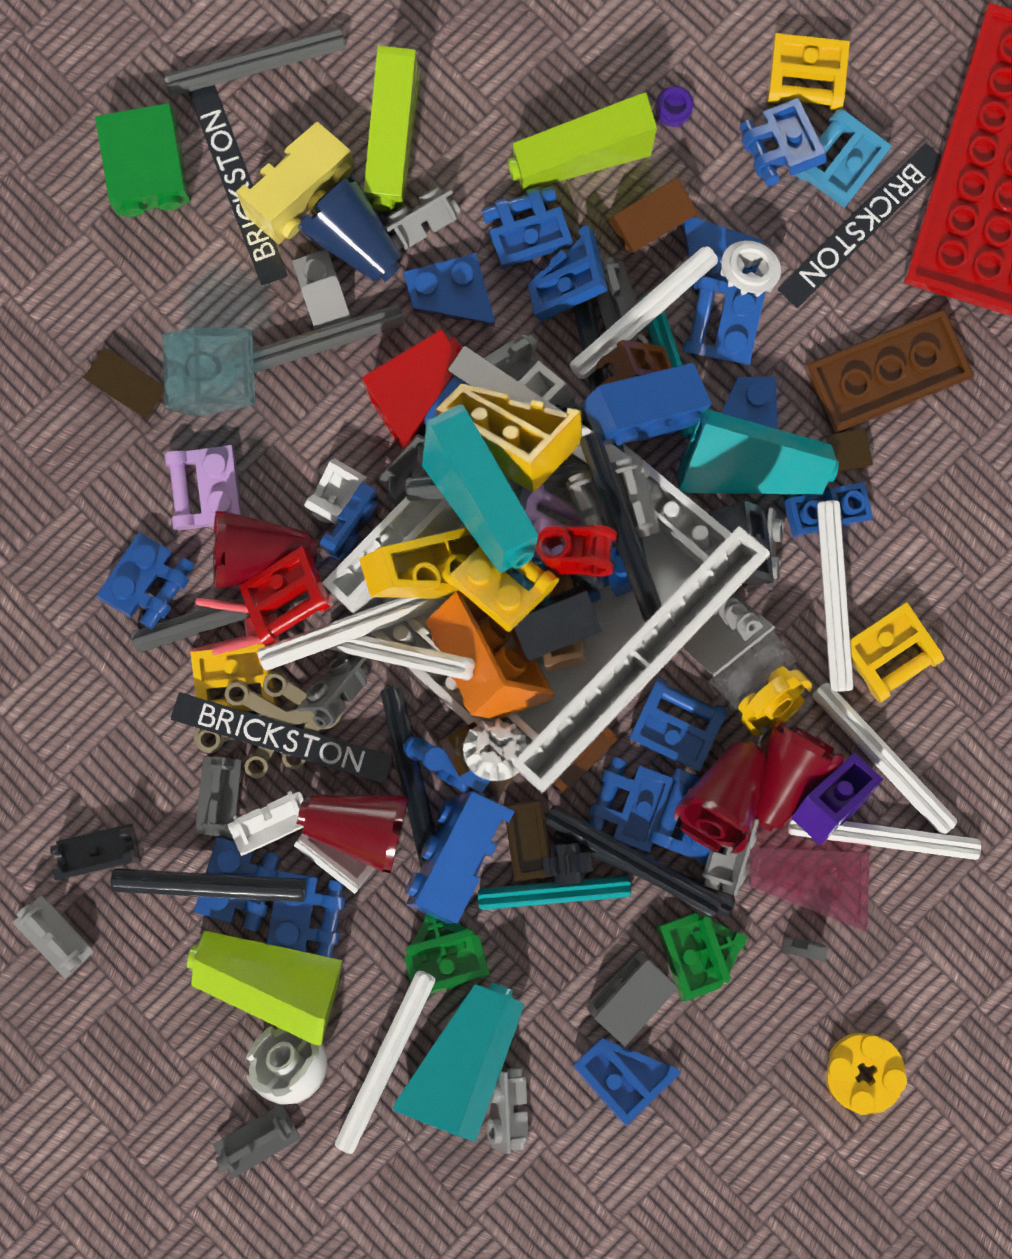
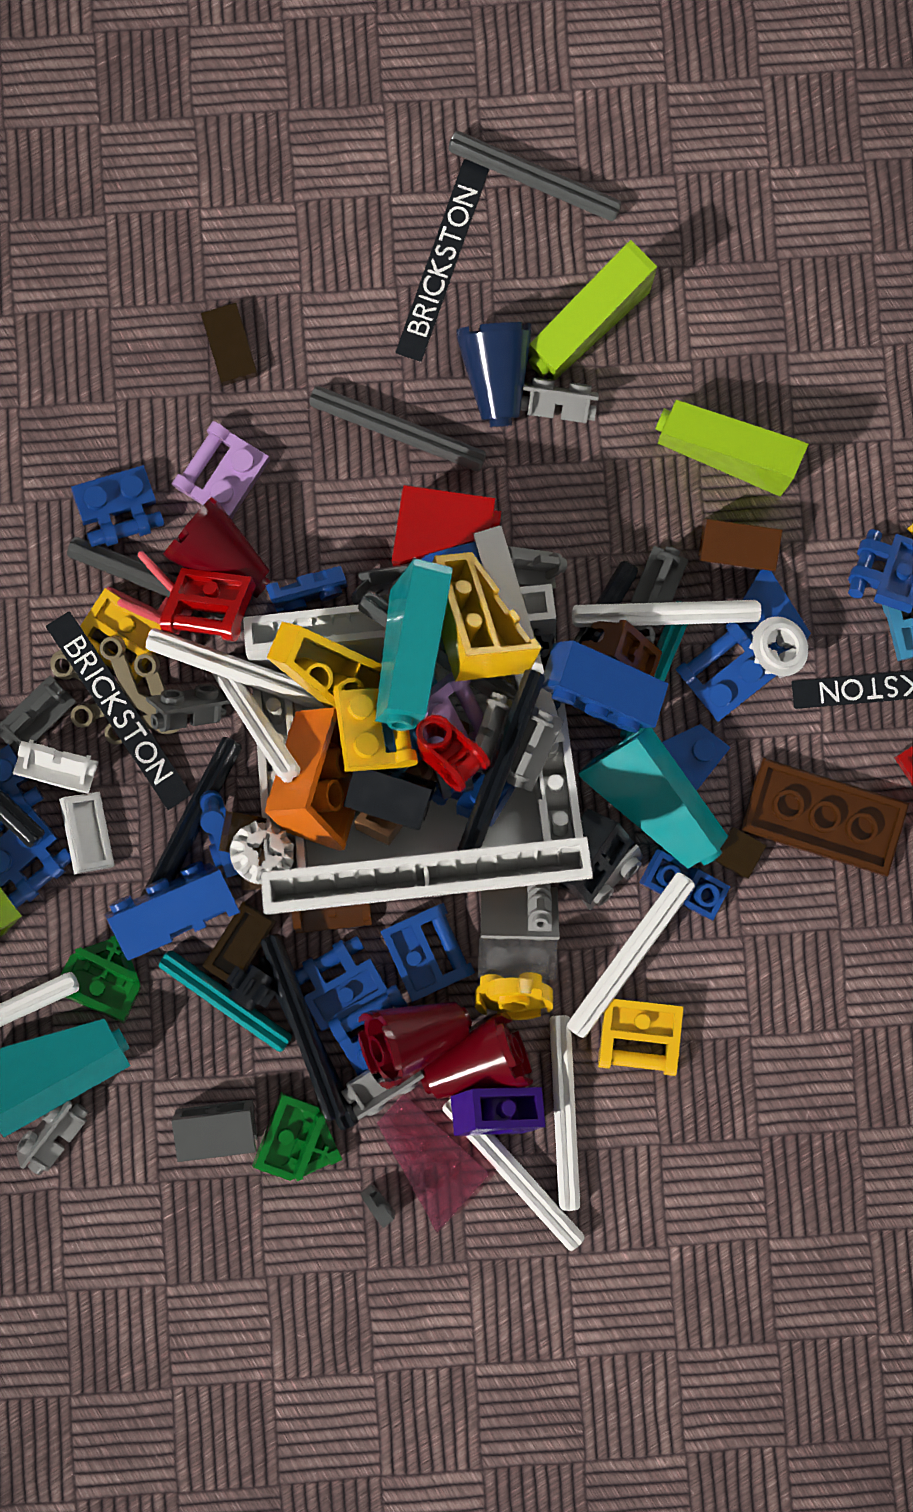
camera: 40 degrees right, 0 degrees up
(142, 160) = (384, 183): green brick -> none
(208, 370) = (296, 384): clear light blue slope -> none
(296, 183) = (486, 295): light yellow wedge -> none
(321, 289) = (436, 393): light grey slope -> none
(334, 491) = (315, 555): white bracket -> none
(356, 825) = (117, 824): dark red cone -> none
(451, 289) = (536, 474): blue wing -> none
(530, 236) = (631, 483): blue plate -> none
(569, 278) = (633, 539): blue wing -> none
(623, 1077) = (158, 1185): blue wing -> none
(674, 106) = (831, 473): dark purple tile -> none
(888, 1077) = (362, 1325): yellow plate -> none

